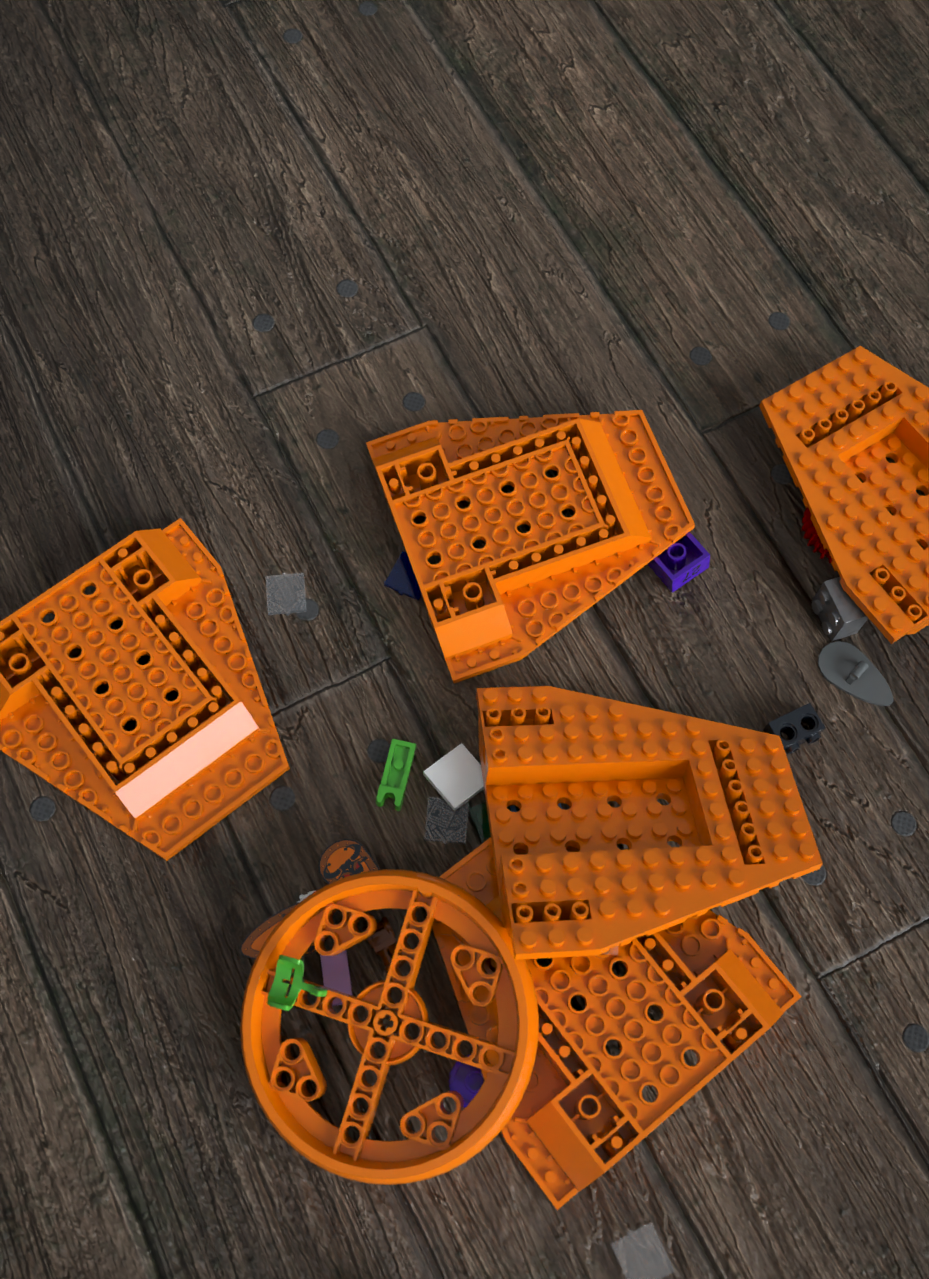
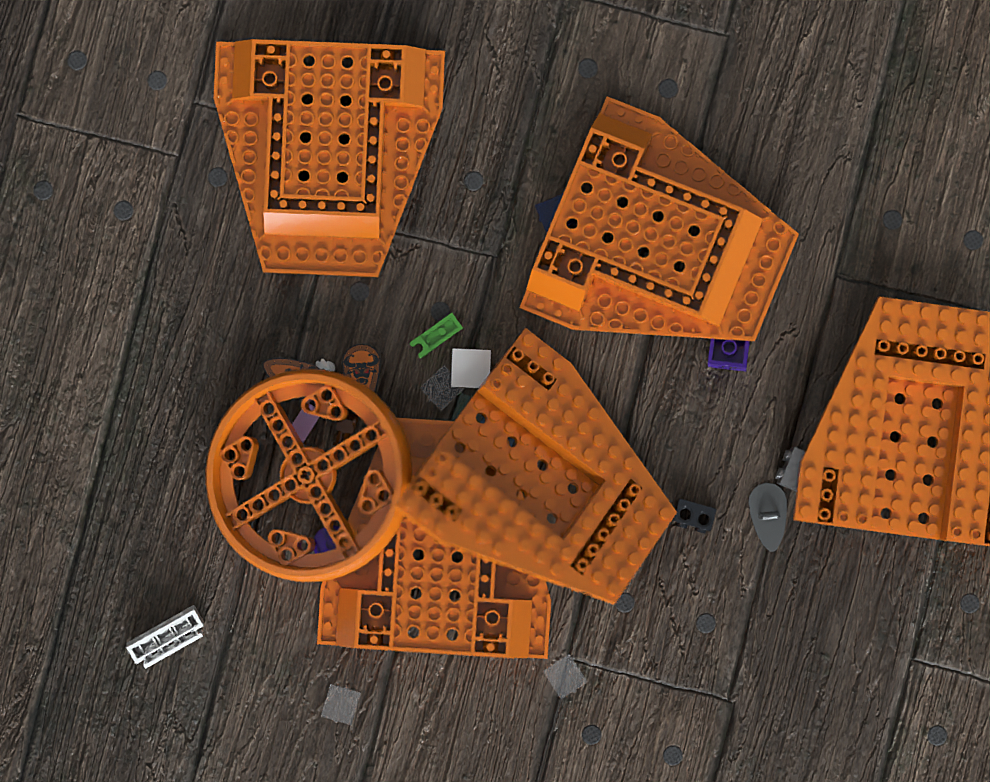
camera: 50 degrees right, 20 degrees up
(279, 989) = (264, 408): bright green helmet -> none
(286, 594) = (469, 159): clear piece -> none
(833, 1000) = (565, 676): none -> clear piece

